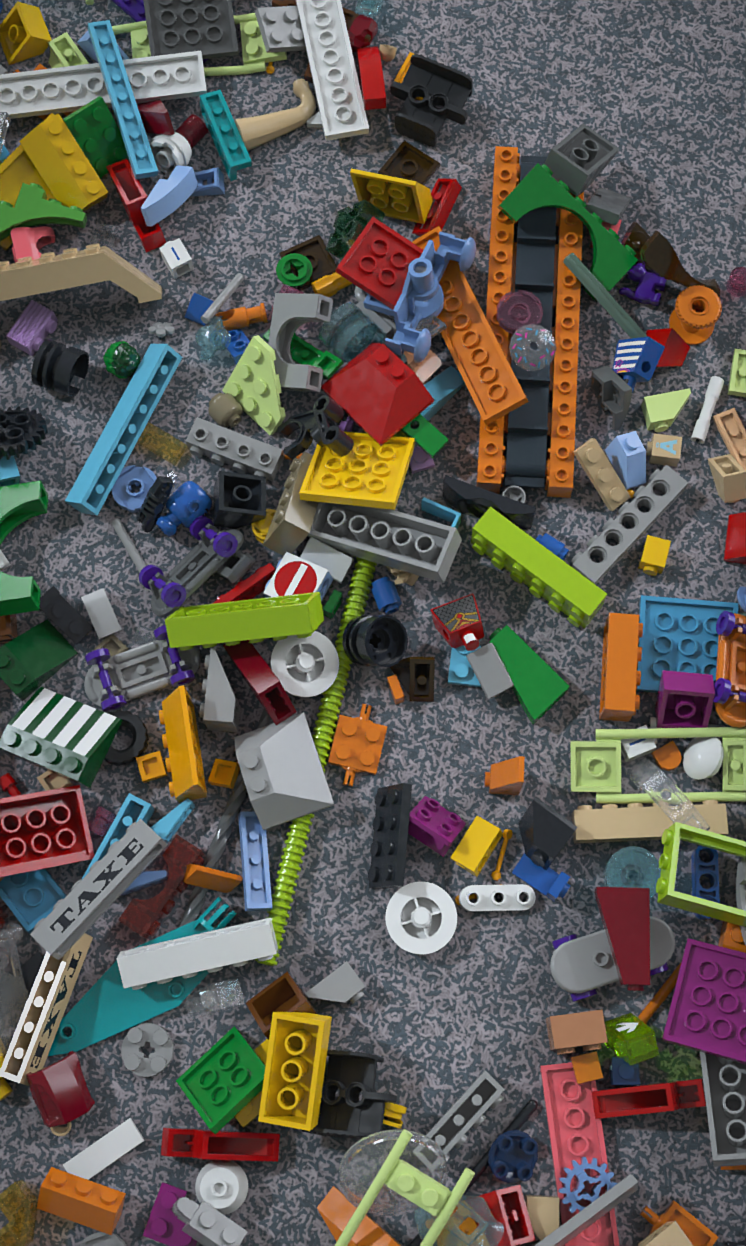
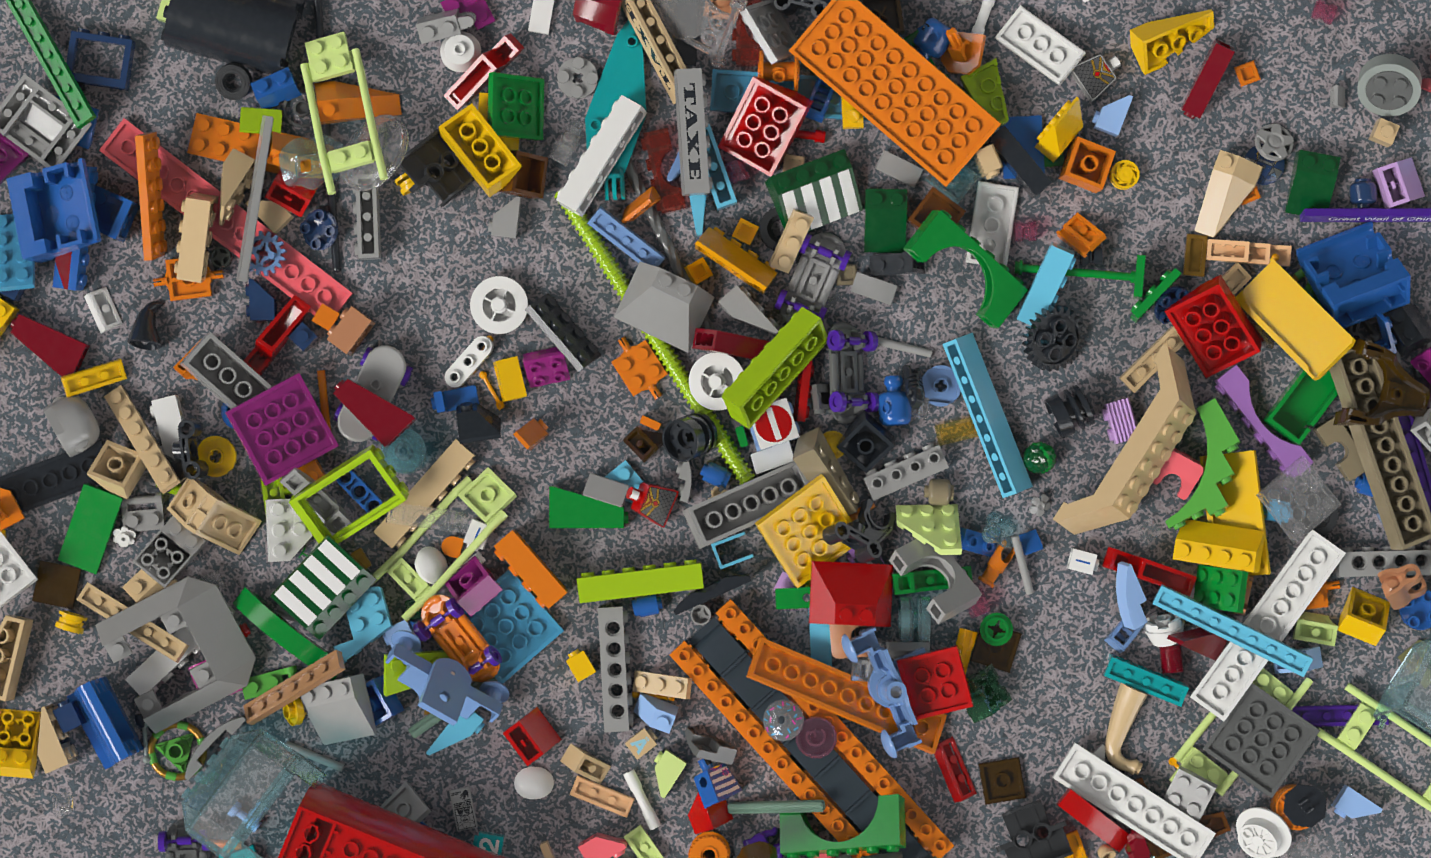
camera: 135 degrees right, 15 degrees up
(121, 714) = (791, 241): none -> tan plate
(393, 195) = (986, 745): yellow slope -> none
(410, 618) = (685, 474): none -> light grey slope
(631, 1039) = (317, 356): clear neon green brick -> none
(633, 1143) = (261, 303): none -> dark blue slope
(635, 1229) = (218, 255): none -> pearl dark grey wheel

